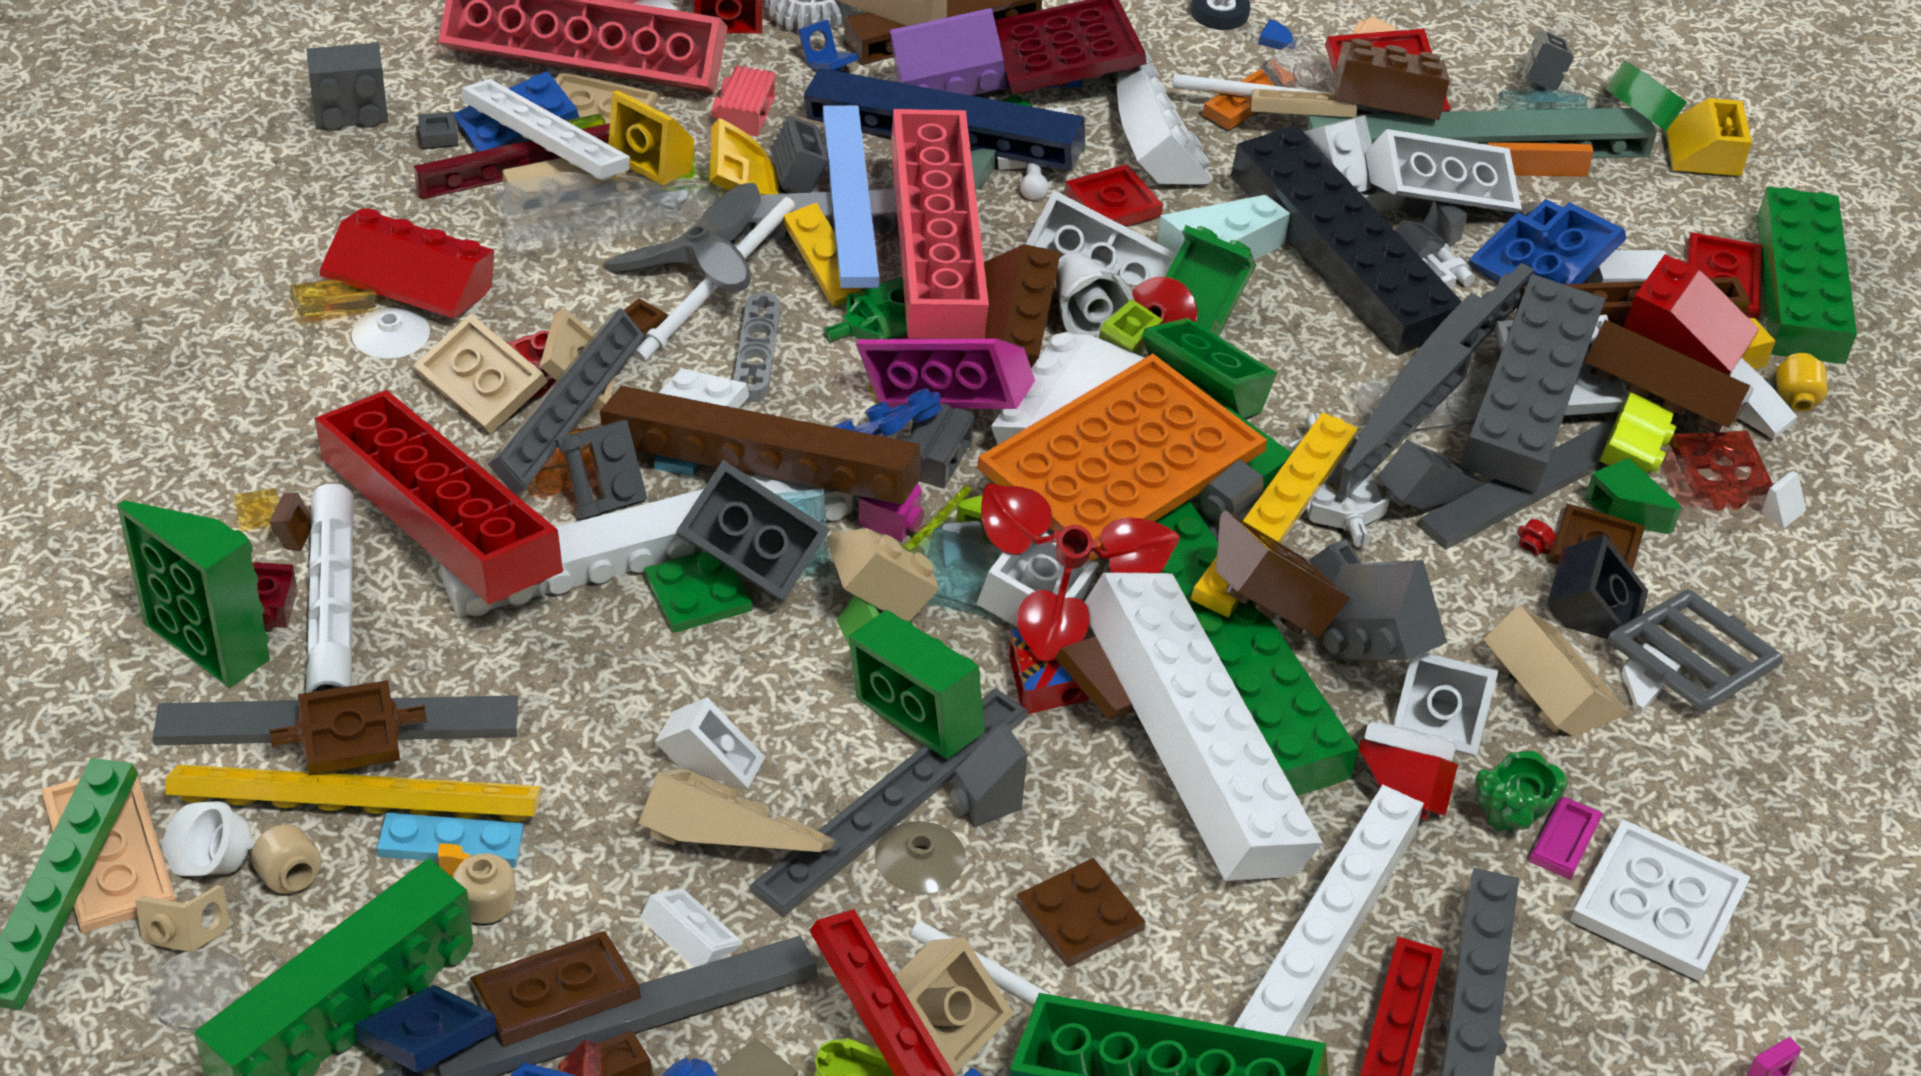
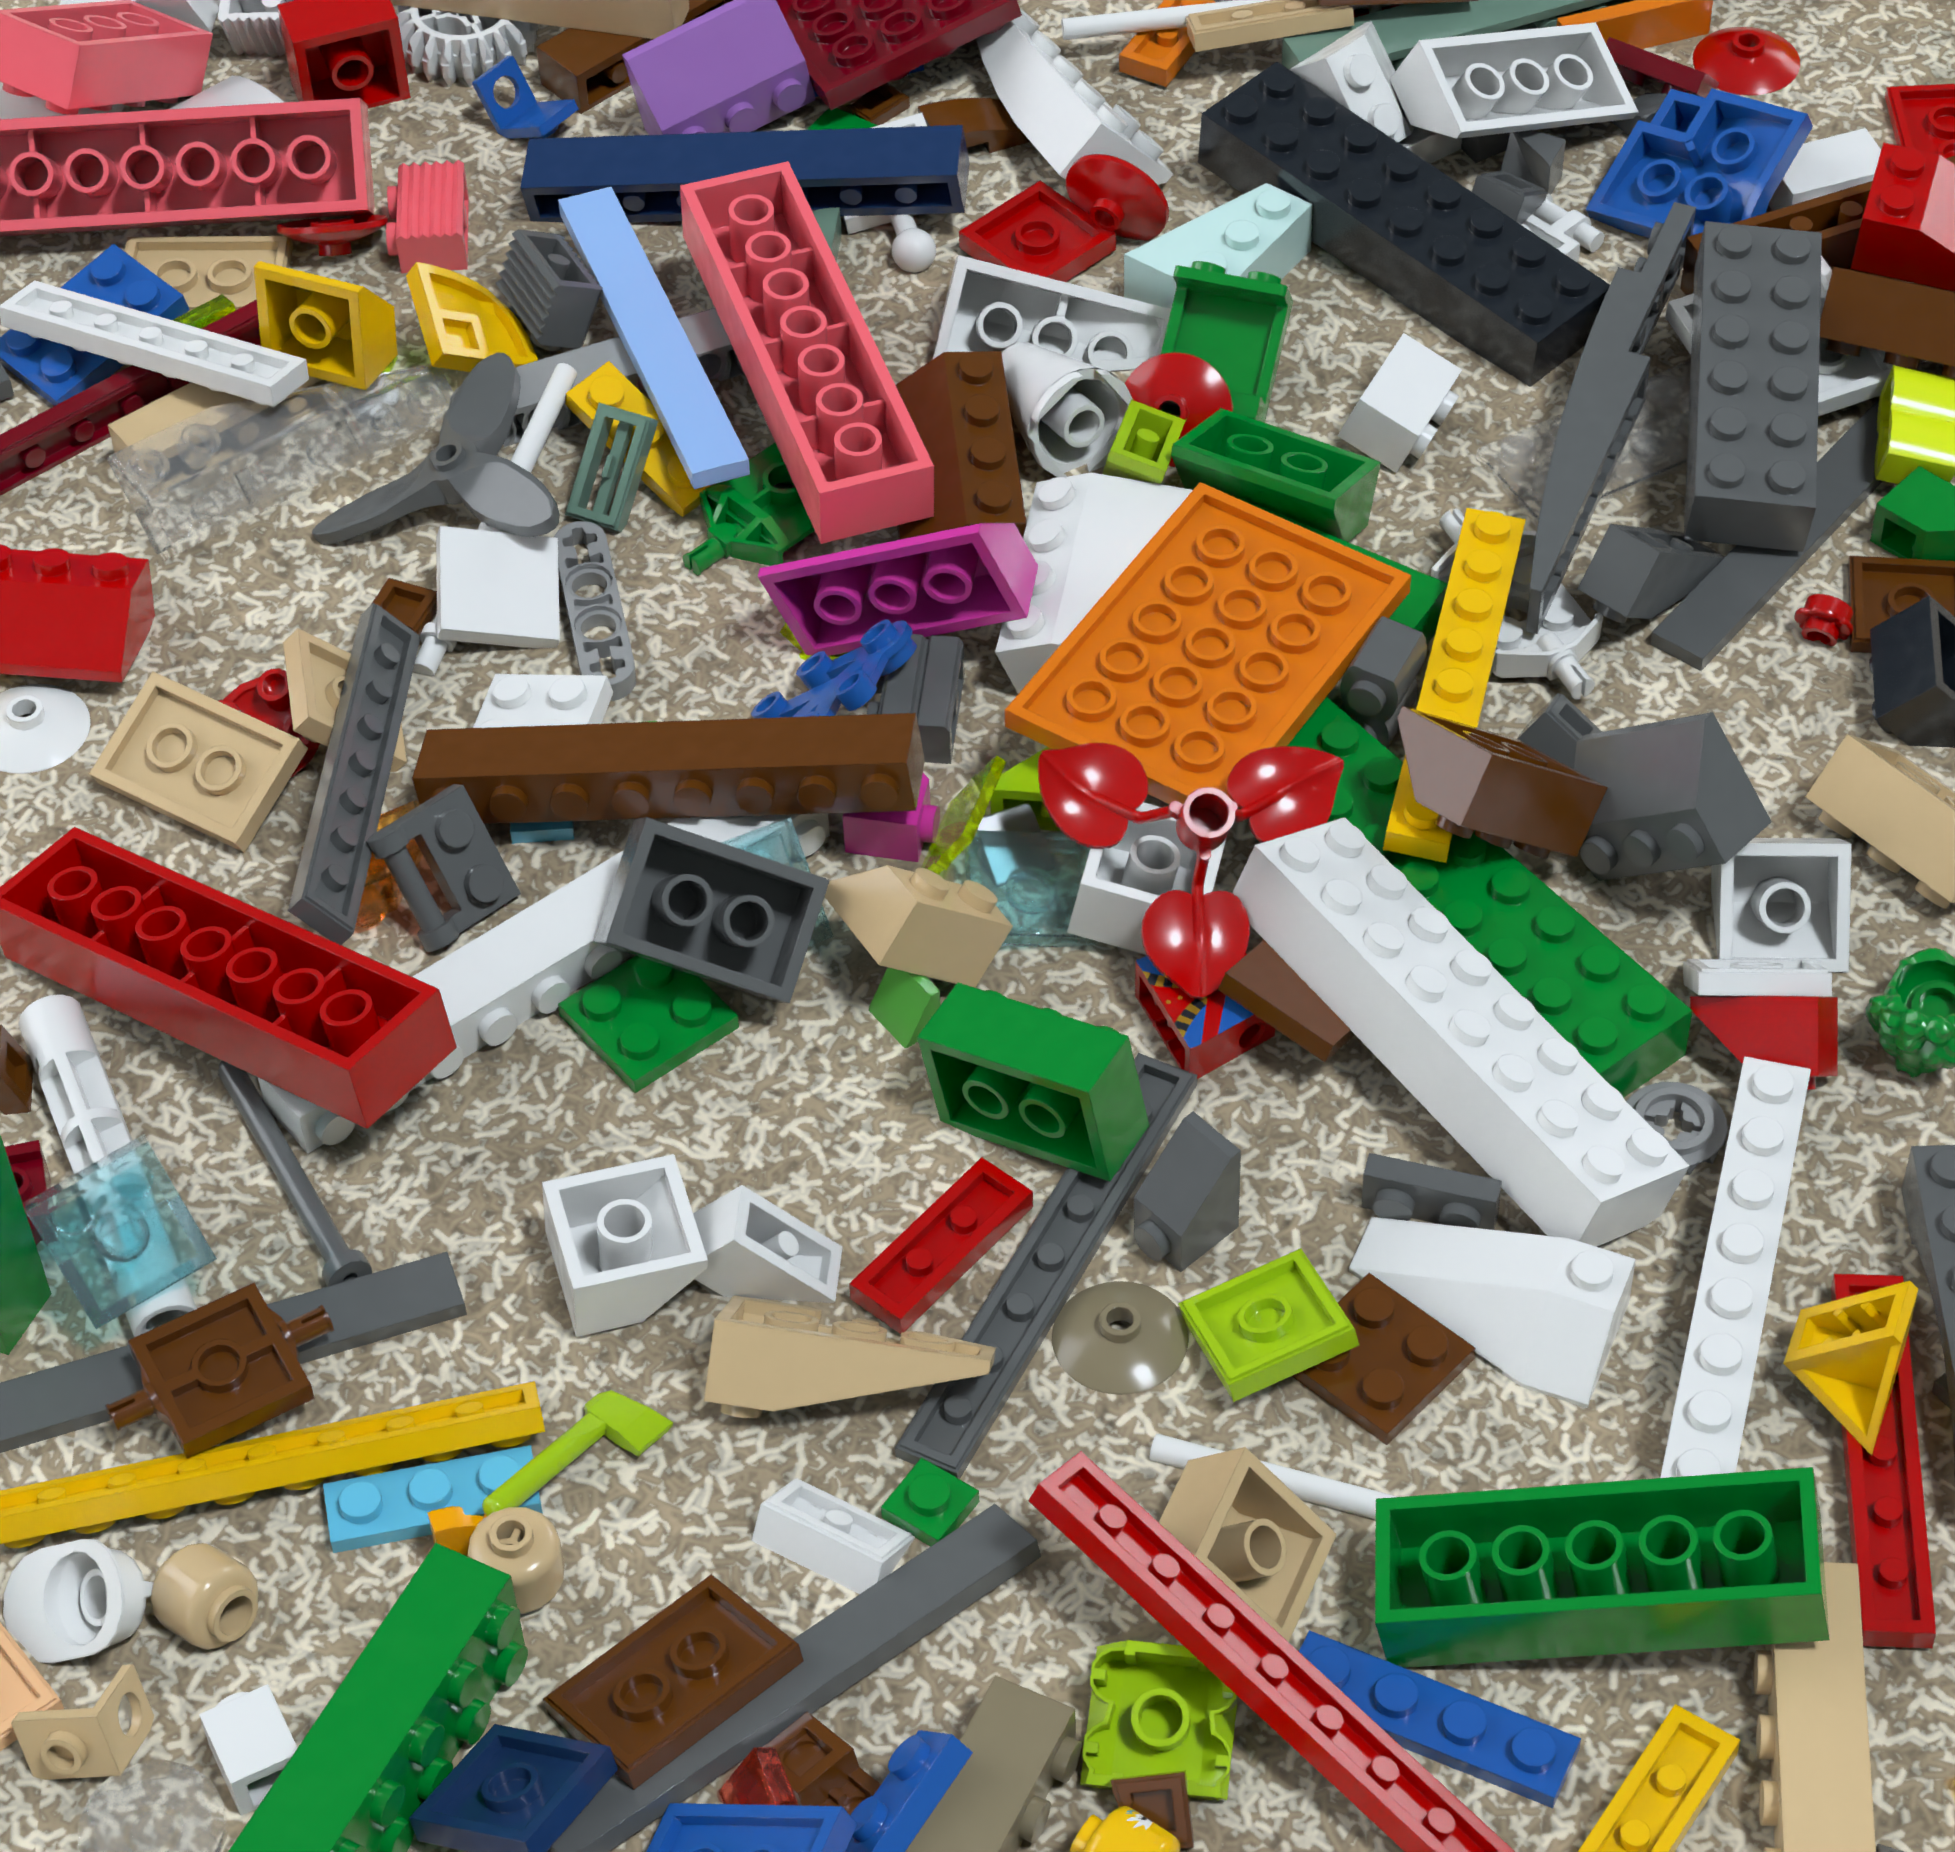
camera: 10 degrees left, 5 degrees up
(274, 946) = (249, 1744): none -> white brick
(315, 627) = (119, 1231): none -> clear light blue slope
(450, 683) = (340, 1261): none -> dark grey bar
(581, 818) = (606, 1414): none -> lime piece
(623, 715) = (622, 1241): none -> white slope
(682, 98) = (332, 235): none -> red dish
(700, 318) = (497, 588): none -> white tile
(759, 924) = (930, 1503): none -> green plate
(802, 268) = (631, 472): none -> sand green tile
(826, 770) = (941, 1245): none -> red plate
(1015, 871) = (1268, 1324): none -> lime tile
(1044, 98) = (879, 104): none -> reddish brown tile
(1100, 122) = (982, 121): none -> reddish brown slope
(1139, 814) = (1429, 1193): none -> dark grey plate
(1169, 181) = (1118, 196): none -> red dish
(1186, 900) = (1522, 1299): none -> white wedge
(1305, 343) = (1400, 403): none -> white brick
(1345, 816) = (1700, 1118): none -> light grey gear
(1390, 988) = (1852, 1353): none -> yellow slope
(1533, 183) = (1639, 64): none -> dark red plate
(1605, 197) = (1747, 60): none -> red dish

